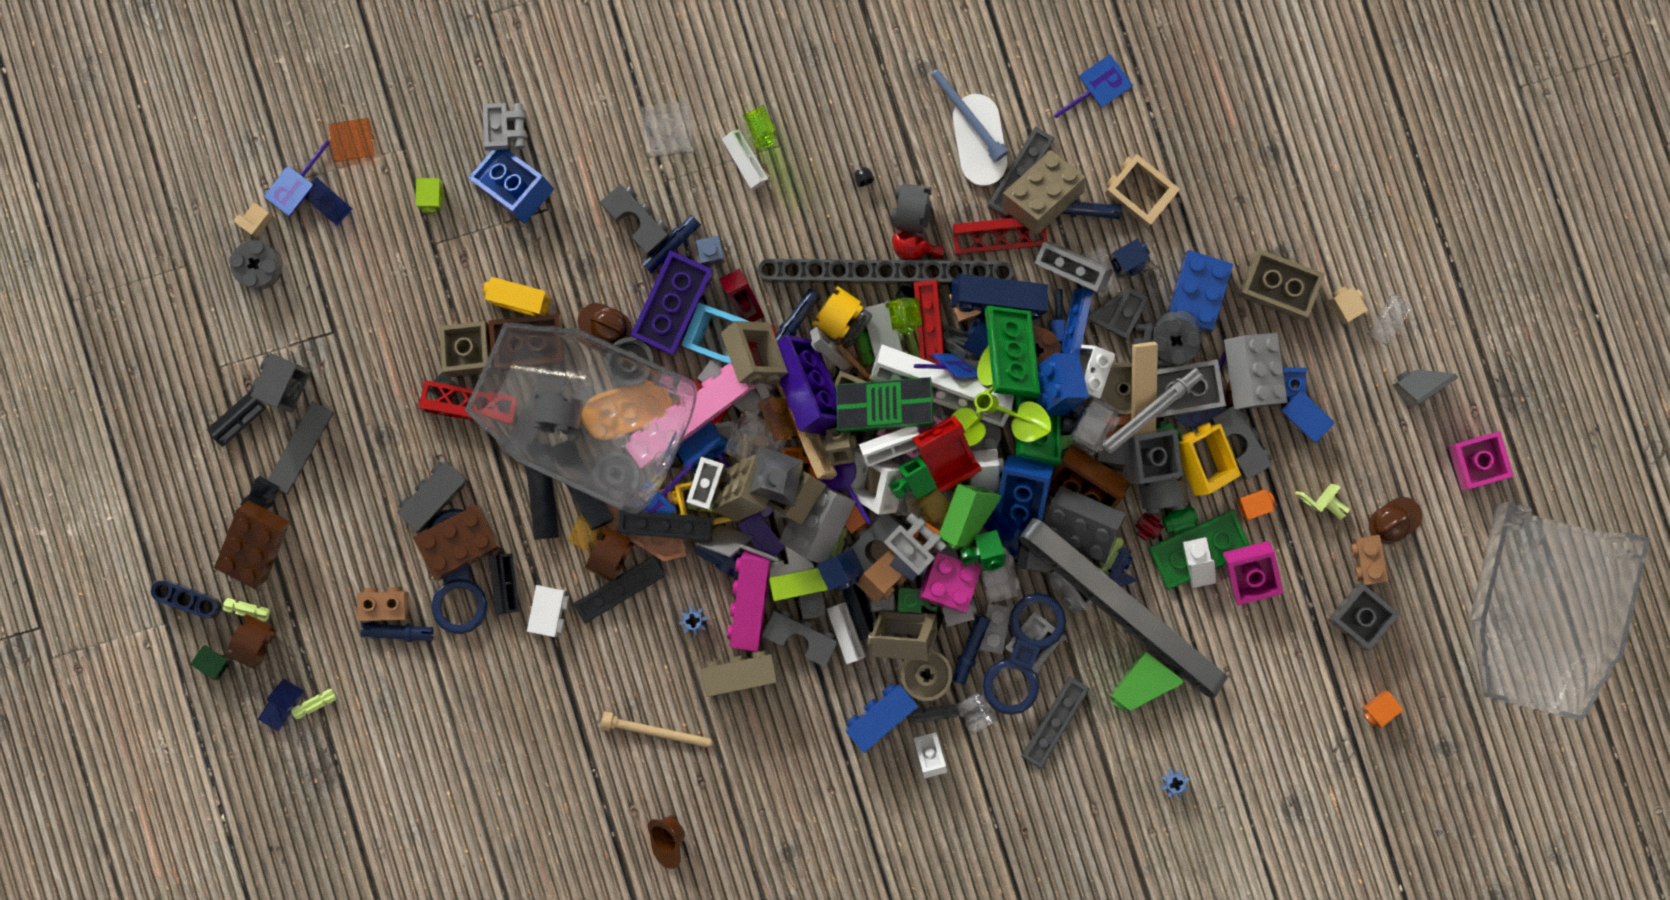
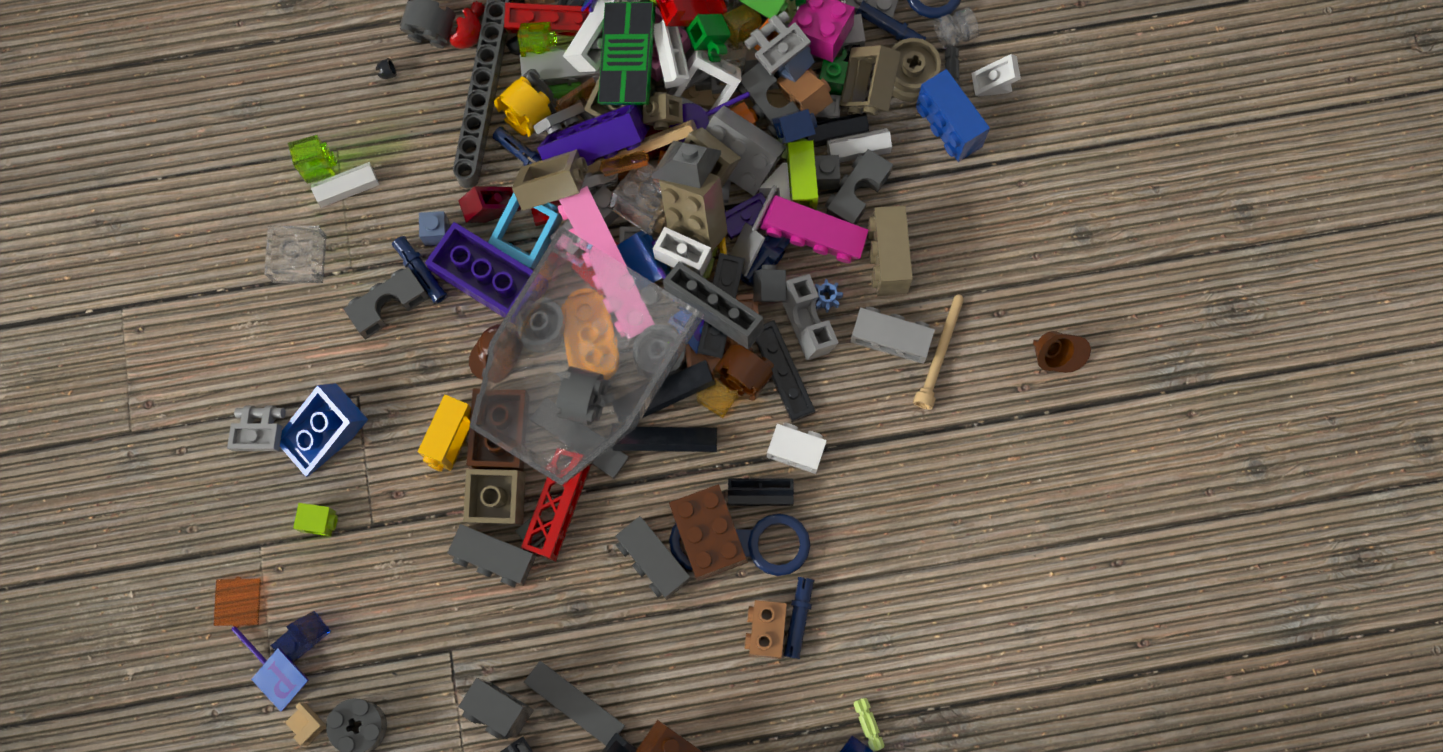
camera: 80 degrees left, 10 degrees down
(416, 354) = (491, 556): none -> dark grey brick
(656, 519) = (719, 307): none -> dark grey brick
(664, 685) = (892, 334): none -> light grey brick
(680, 597) = (813, 335): none -> light grey arch
(691, 566) = (769, 284): none -> dark grey brick

